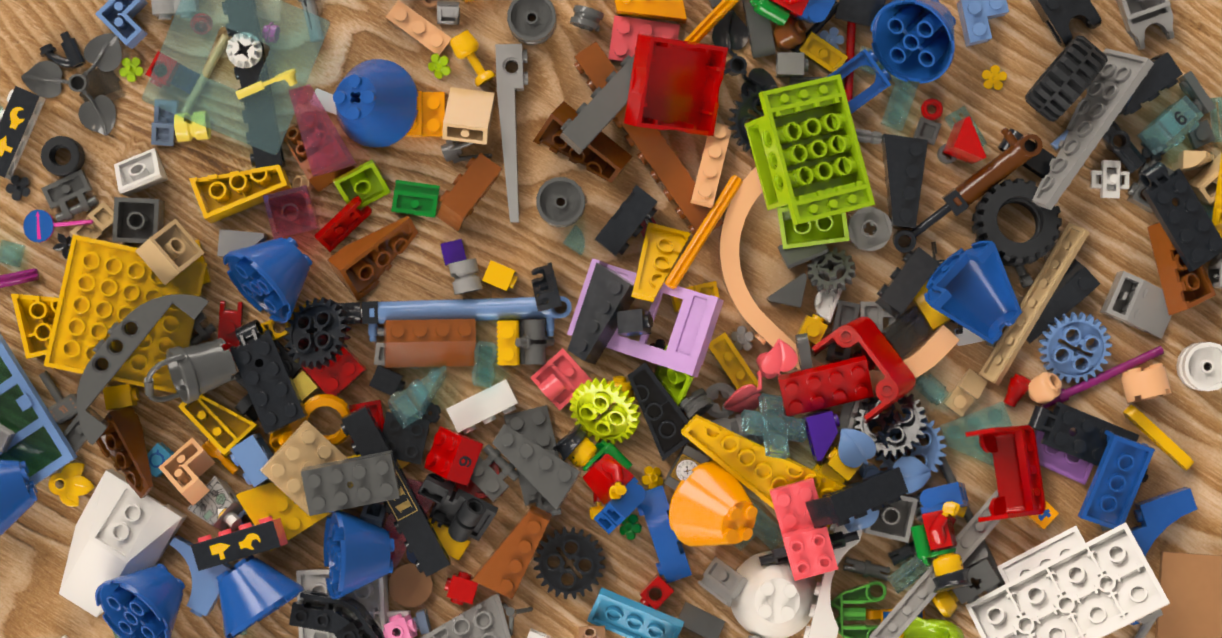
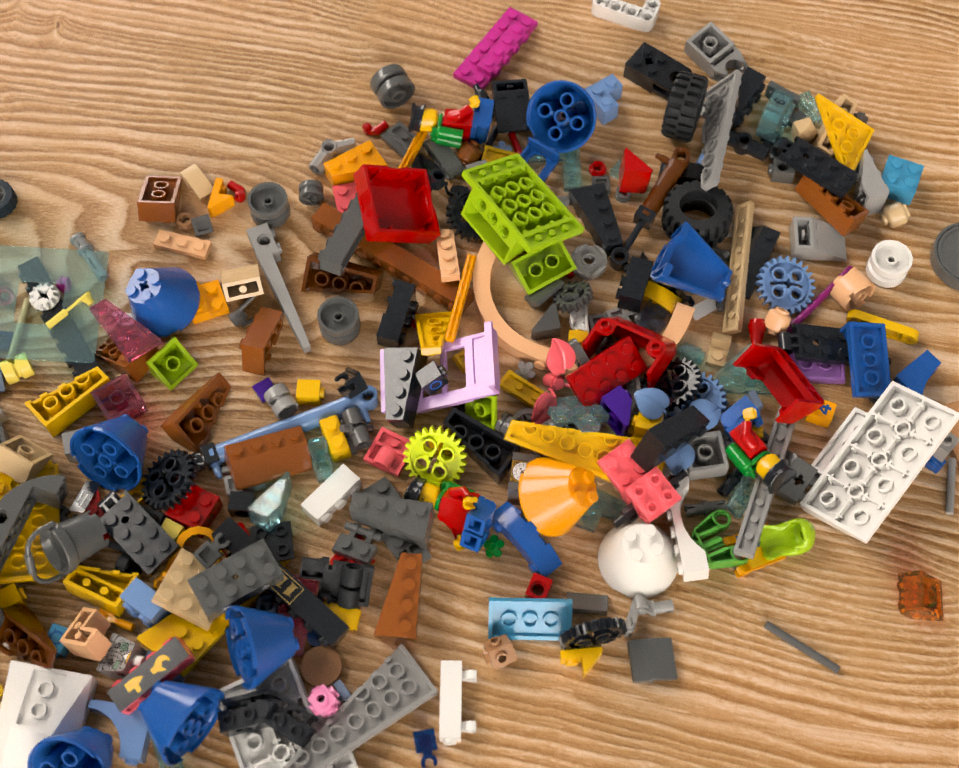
camera: 20 degrees left, 25 degrees down
(226, 308) = (84, 496): none -> sticker
(335, 440) = (210, 552): none -> dark grey plate
(342, 224) = (165, 399): red hinge -> none
(415, 198) = (220, 359): green plate -> none
(435, 413) = (292, 514): black plate -> none
(439, 65) = (207, 263): lime plant -> none
(453, 455) = (320, 536): red brick -> none
(461, 588) = (367, 650): red brick -> none
(464, 47) = (224, 241): yellow piece -> none
(511, 612) = (419, 650): dark grey plant -> none
(575, 240) = (361, 348): clear light blue tile -> none
(585, 550) = (443, 609): black gear -> none
(651, 477) = (496, 498): yellow plant -> none
(722, 581) = (590, 558): light grey plate -> none
(945, 603) = (781, 509): yellow cone -> none
(973, 473) = (753, 396): none -> sand blue tile
(993, 77) = (633, 136): yellow plant -> none
(1110, 179) = (752, 166): white piece -> none

